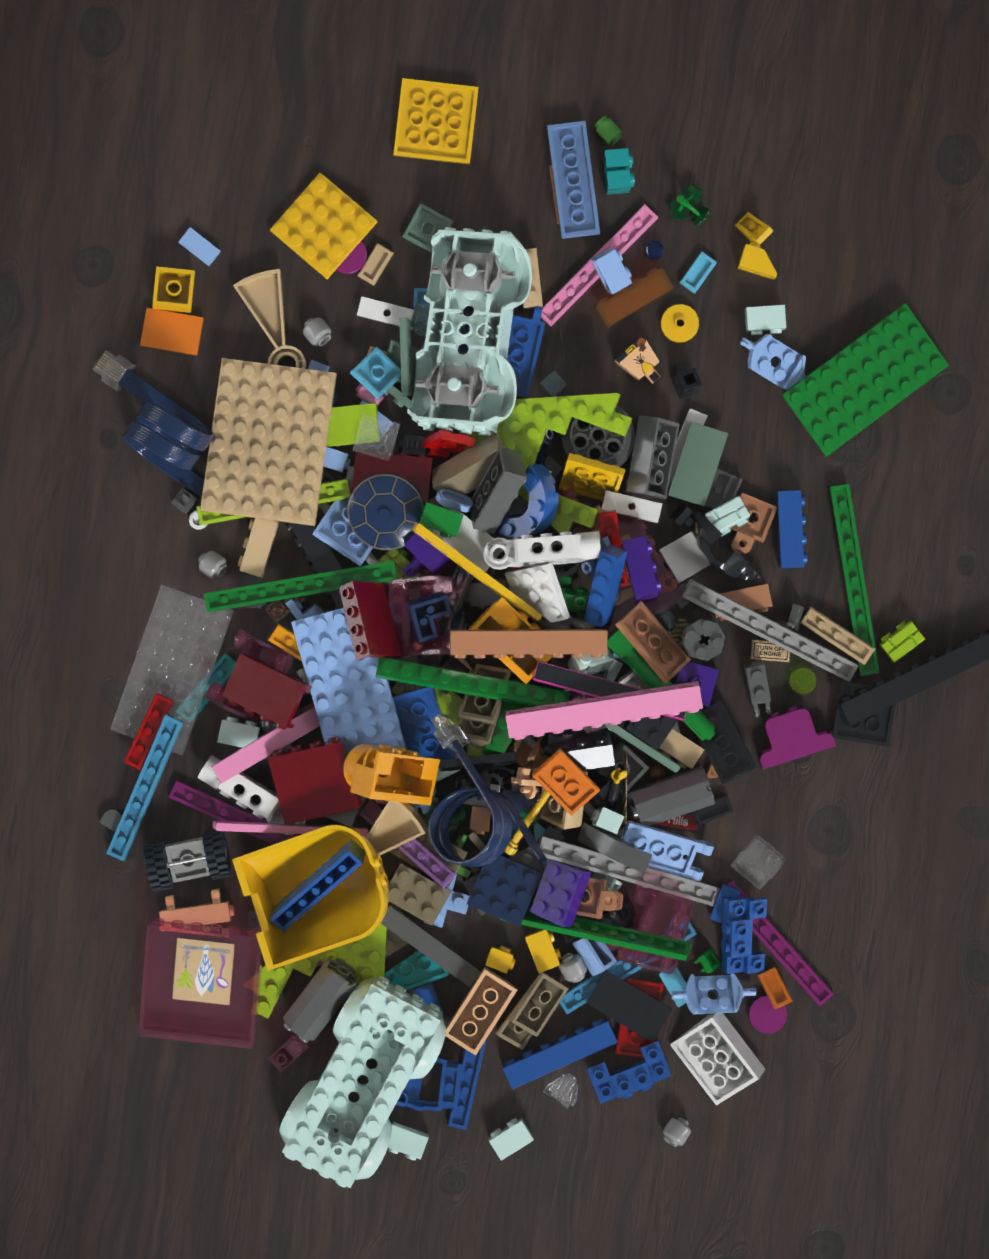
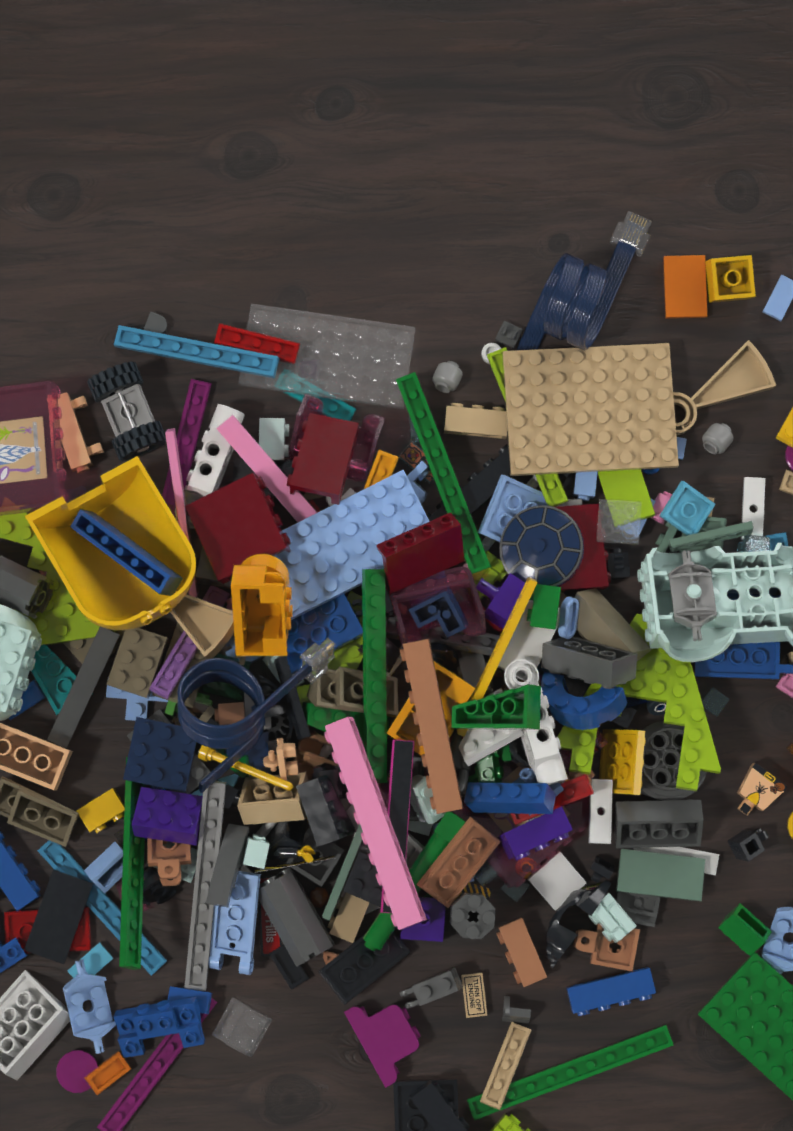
camera: 85 degrees right, 5 degrees down
(444, 442) = (628, 596): red plate -> none
(500, 959) = (84, 767): yellow brick -> none
(529, 574) = (507, 711): none -> green wedge
(565, 782) = (289, 797): orange tile -> none
(572, 967) = (89, 846): light grey head -> none
(662, 916) = (163, 931): clear pink windscreen -> none
(708, 961) = (123, 994): green tile -> none
(760, 399) = (745, 929): none -> green brick
(769, 630) = (496, 989): light grey plate -> none
(802, 680) = (448, 1037): clear neon green piece -> none

